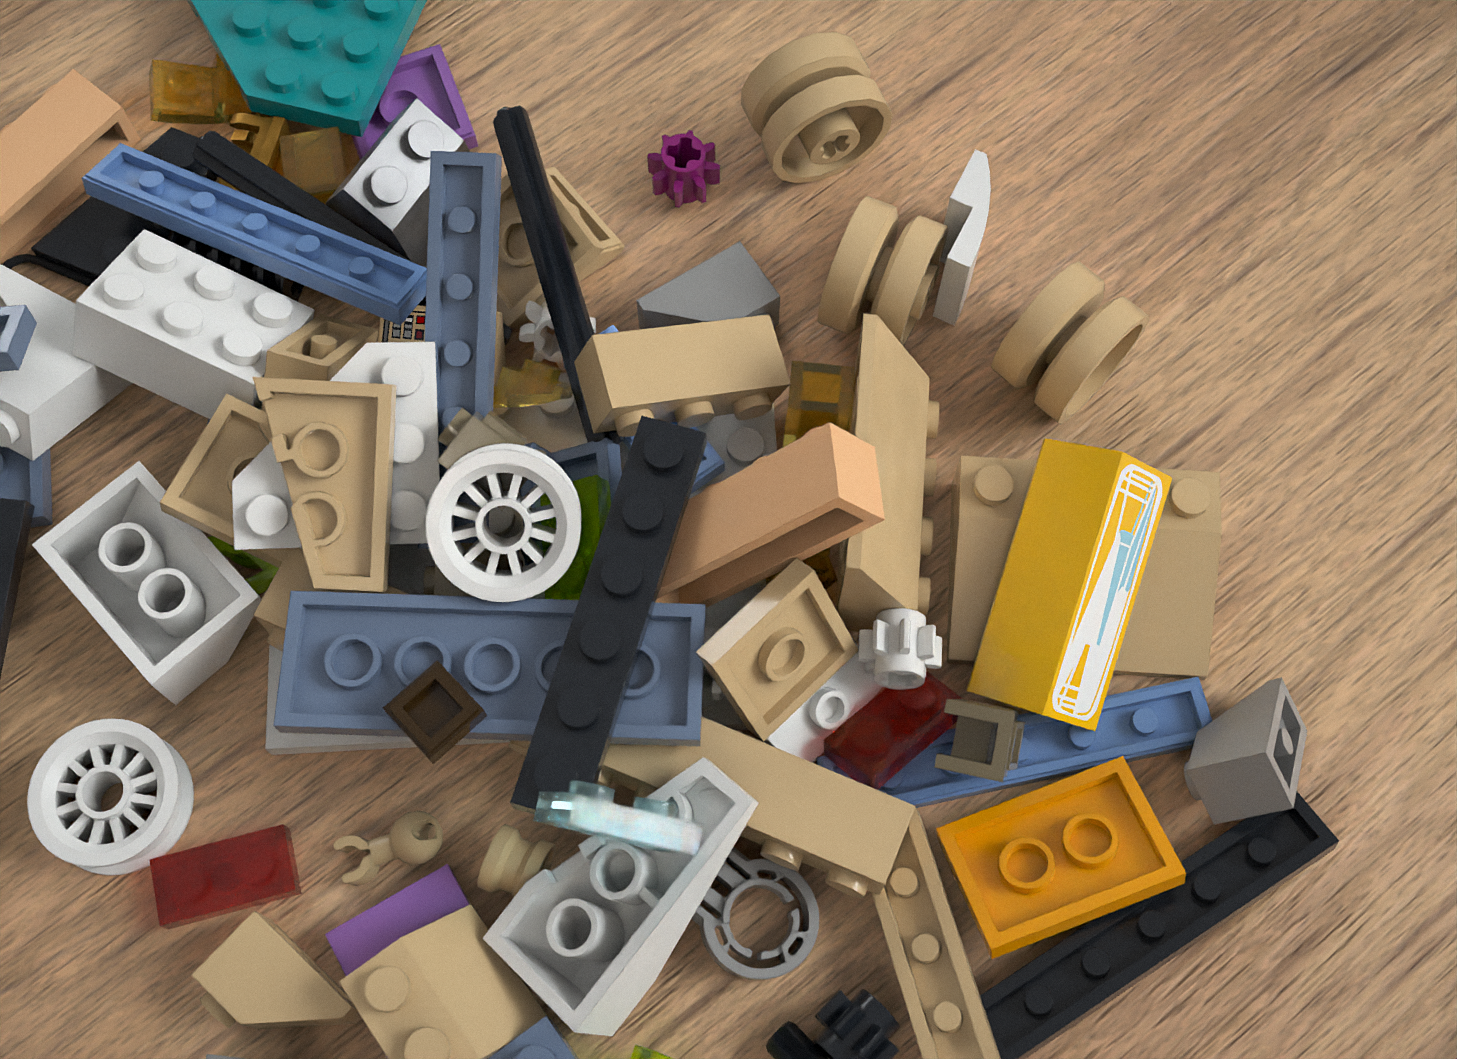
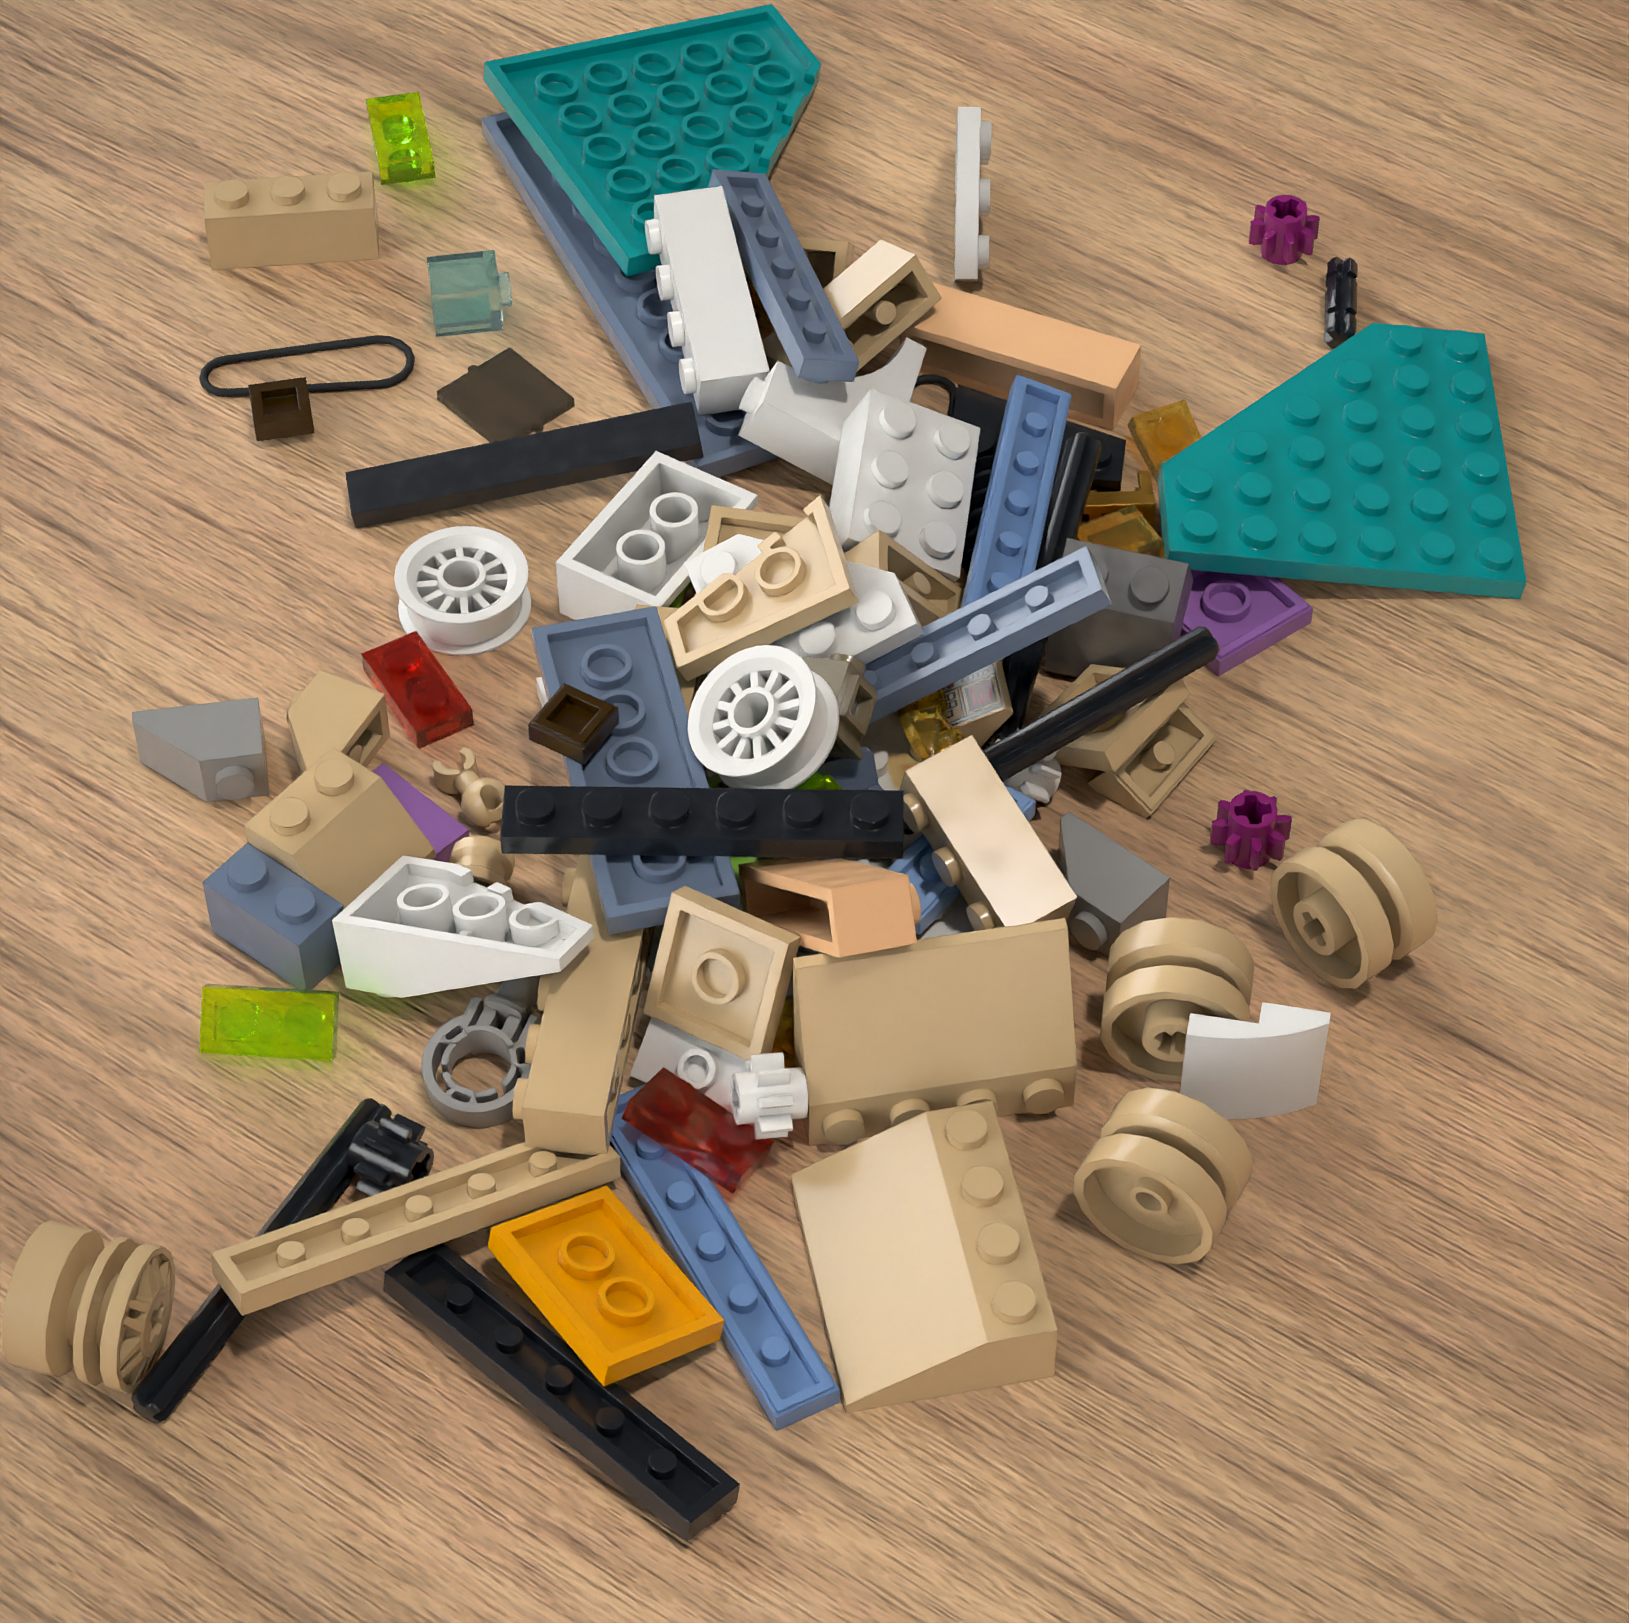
camera: 75 degrees right, 20 degrees down
(590, 811) = (503, 822): clear light blue plate -> none
(984, 740) = (697, 1185): dark tan window -> none
(1070, 582) = (879, 1220): yellow slope -> none
(1249, 756) = (764, 1433): light grey slope -> none

